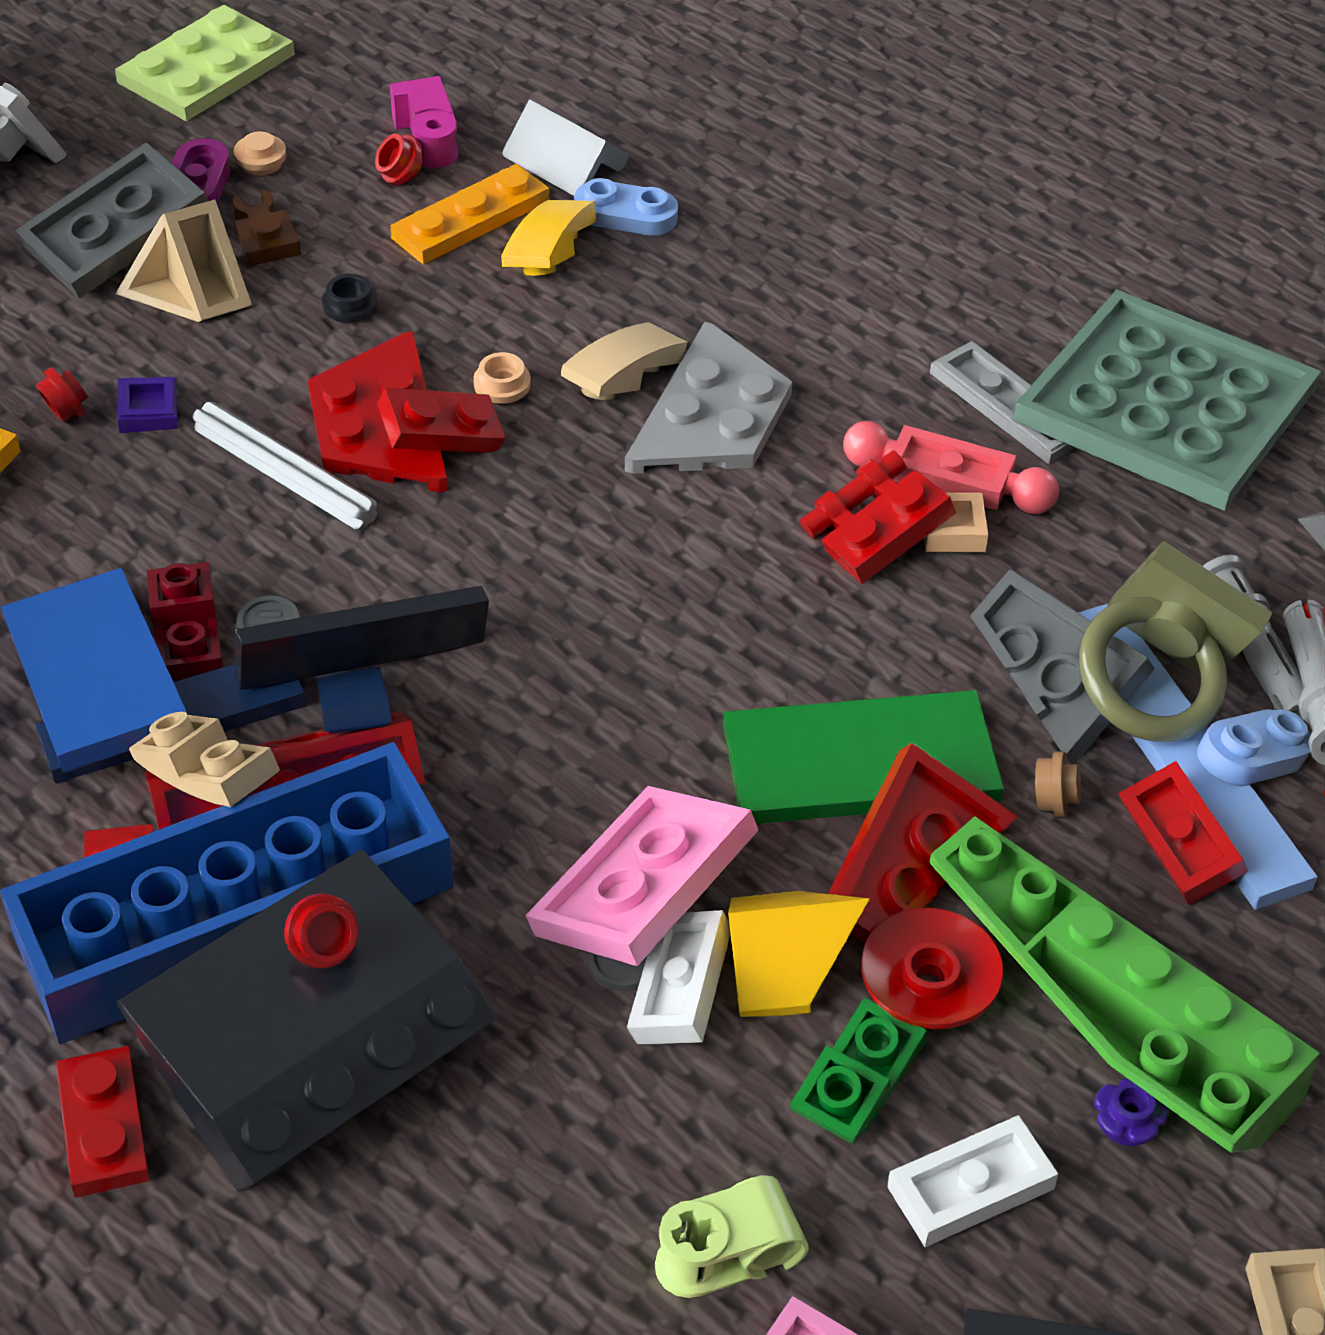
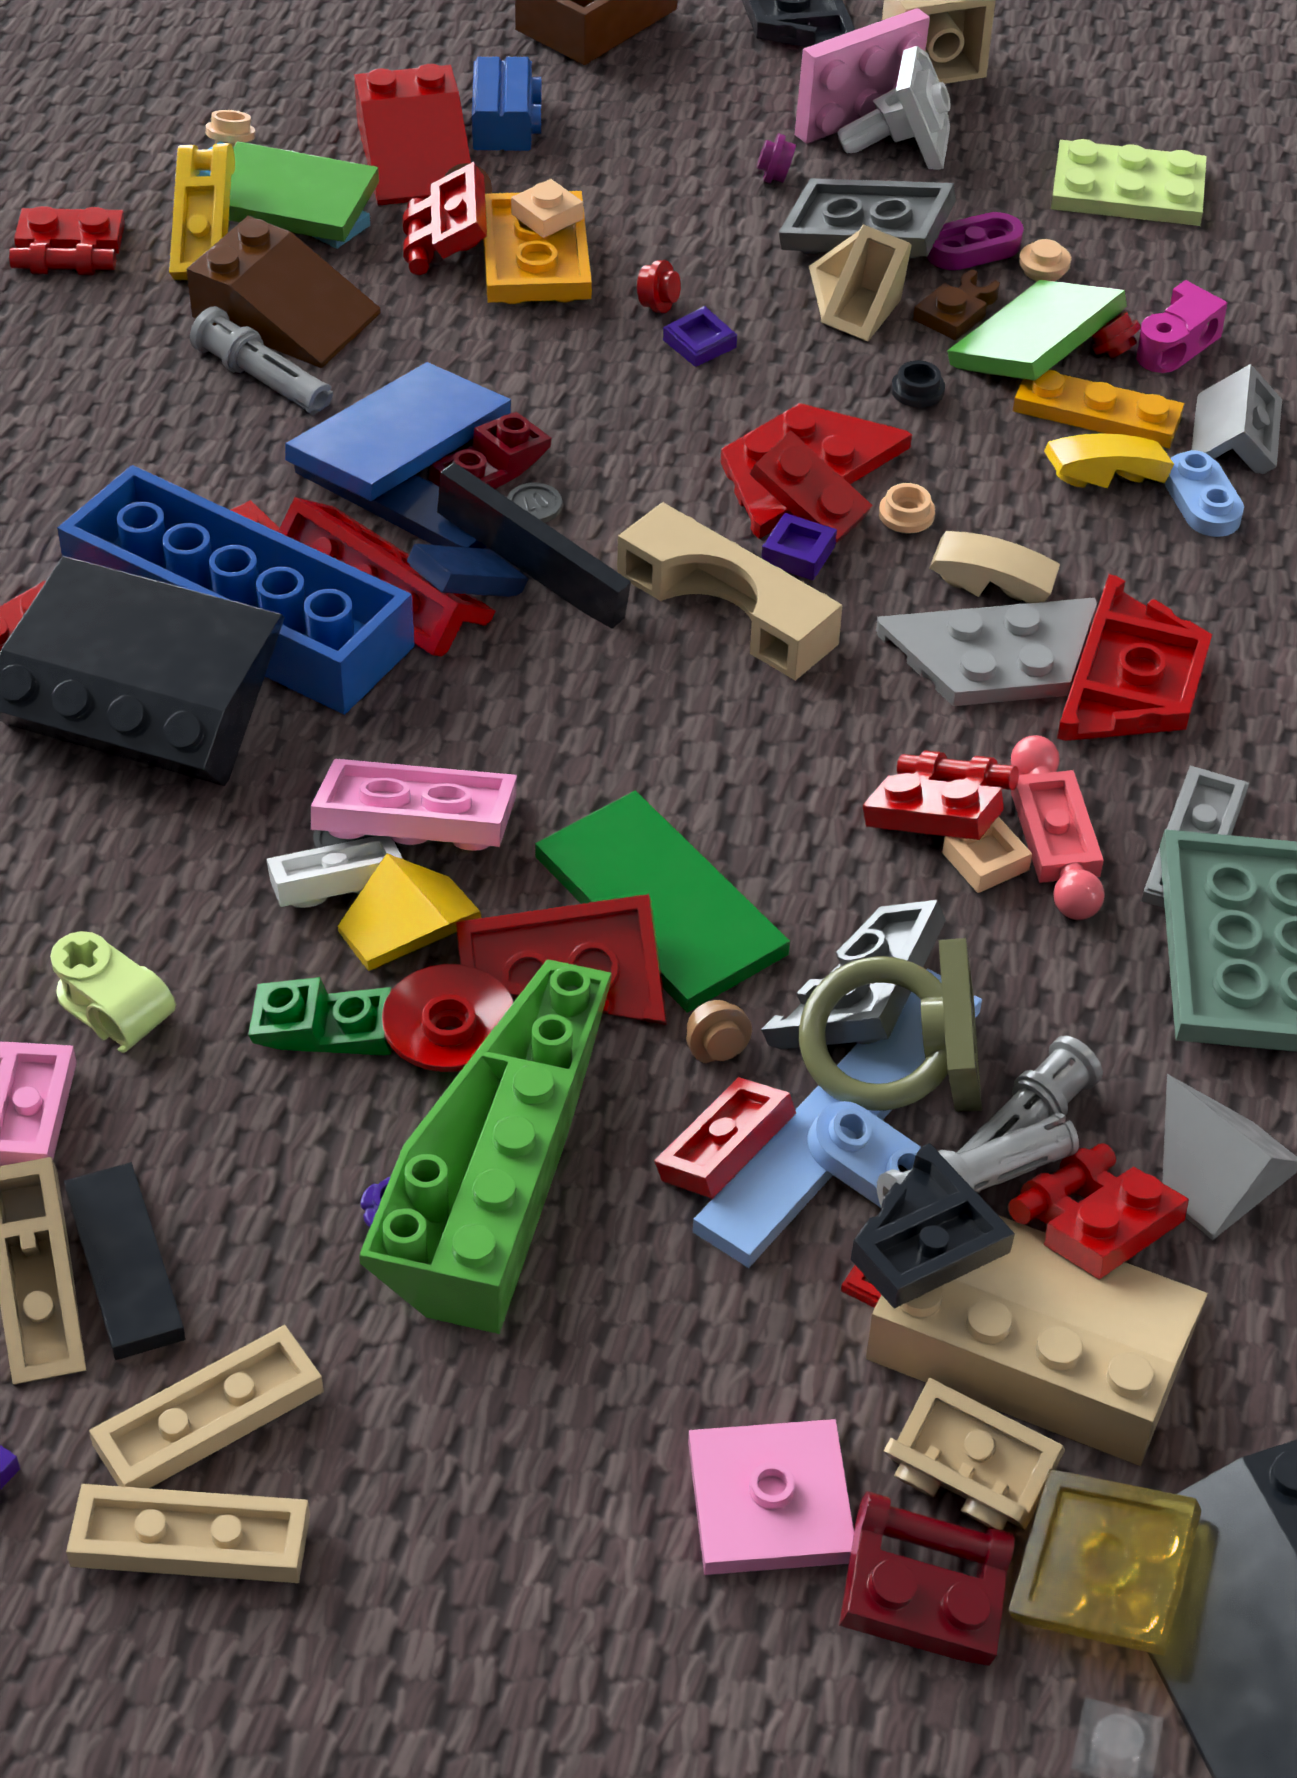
camera: 60 degrees right, 0 degrees up
(201, 760) = (325, 507): tan slope -> none
(285, 466) = (698, 437): axle -> none
(321, 930) = (175, 617): red plate -> none
(354, 196) = (1037, 329): none -> tile
(495, 465) = (799, 546): none -> dark purple plate
(585, 512) = (679, 556): none -> tan arch
(804, 336) = (1134, 670): none -> red wing
(972, 1180) = (255, 1123): white plate -> none

